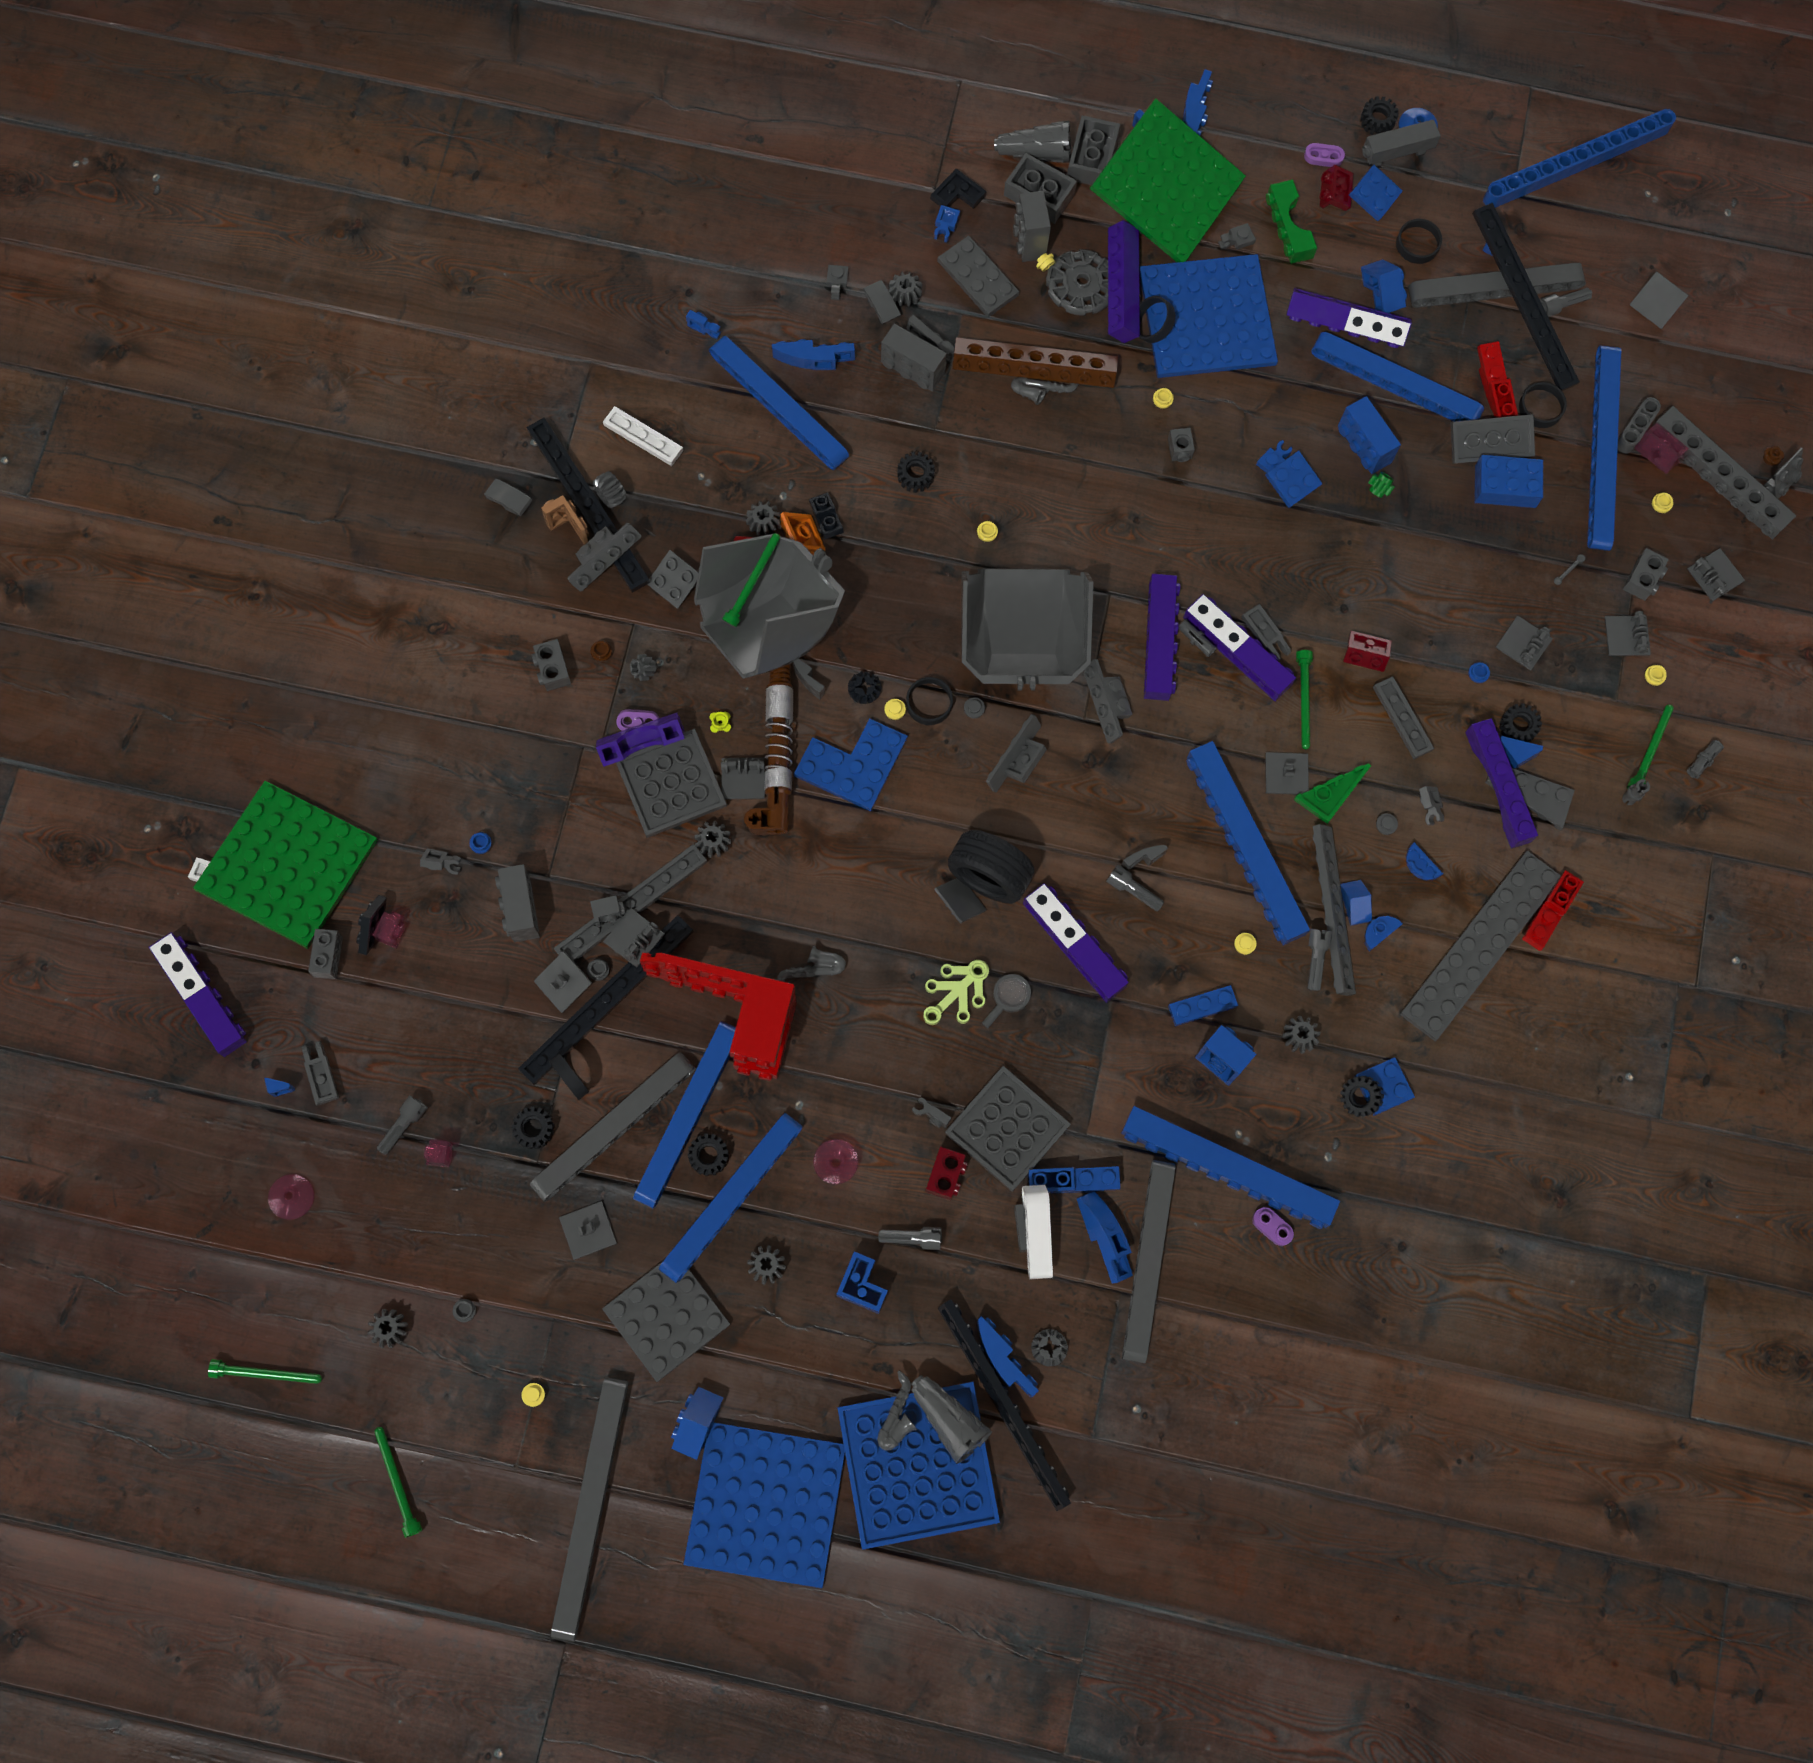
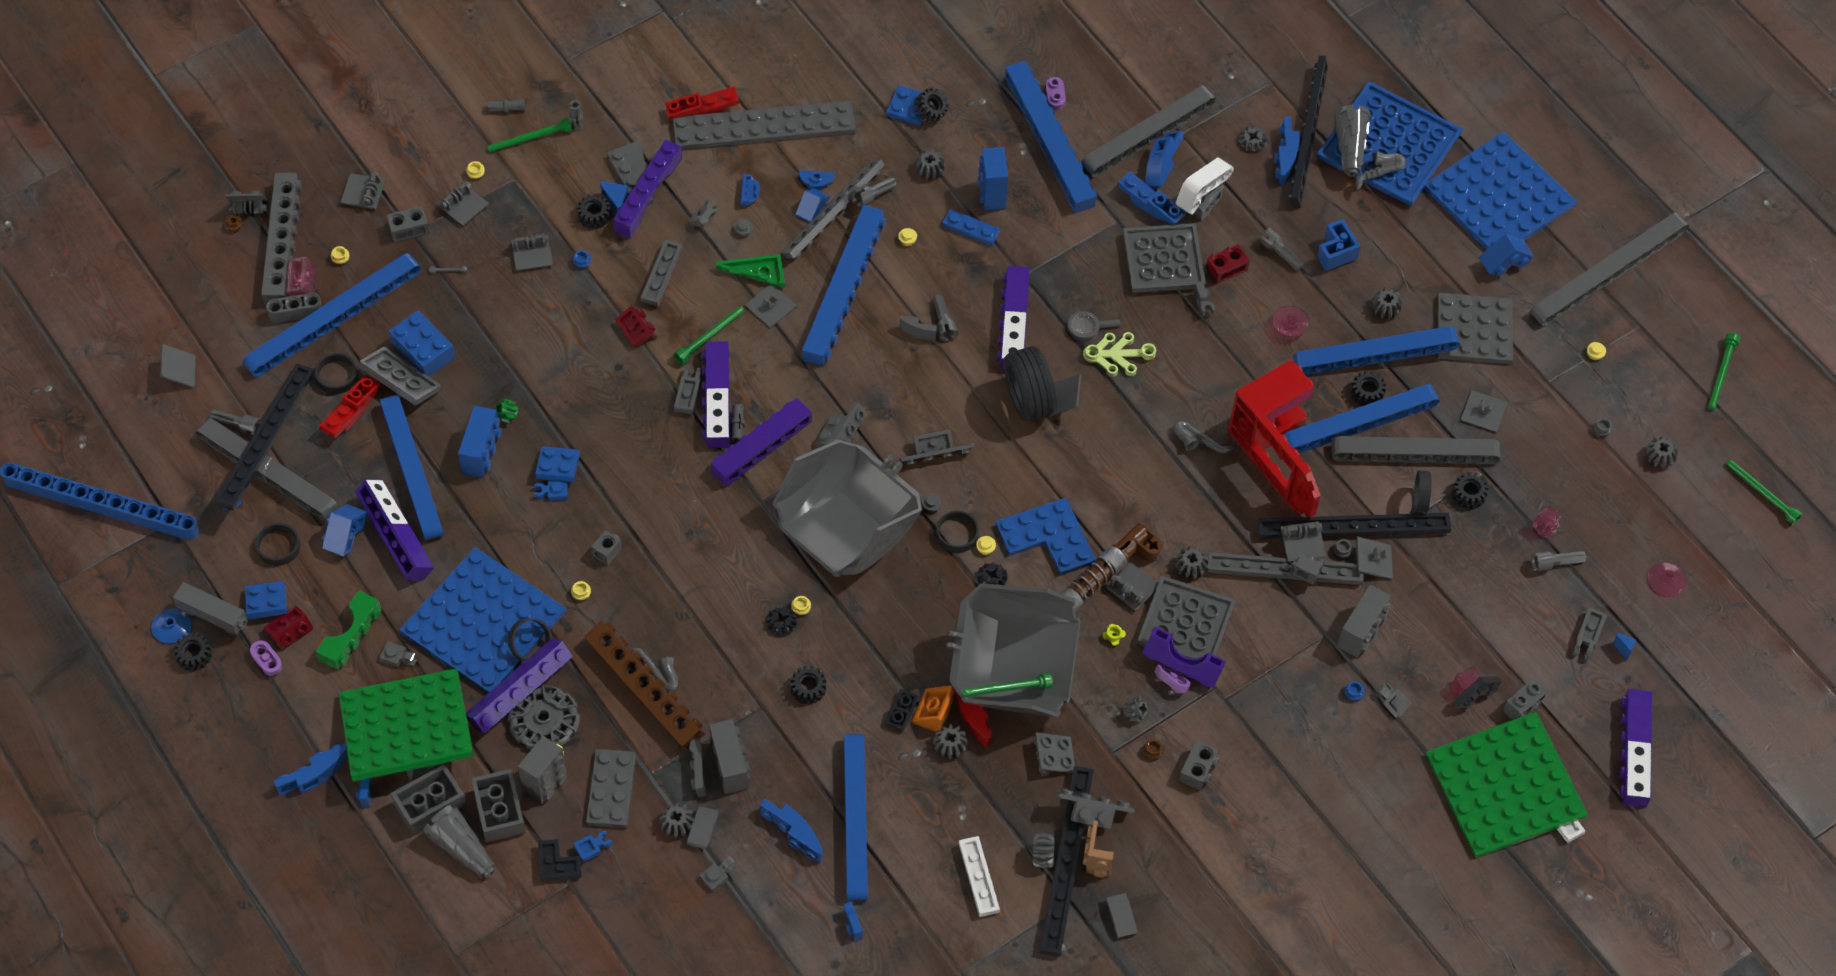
camera: 135 degrees left, 15 degrees down
(993, 515) = (777, 627): none -> black gear

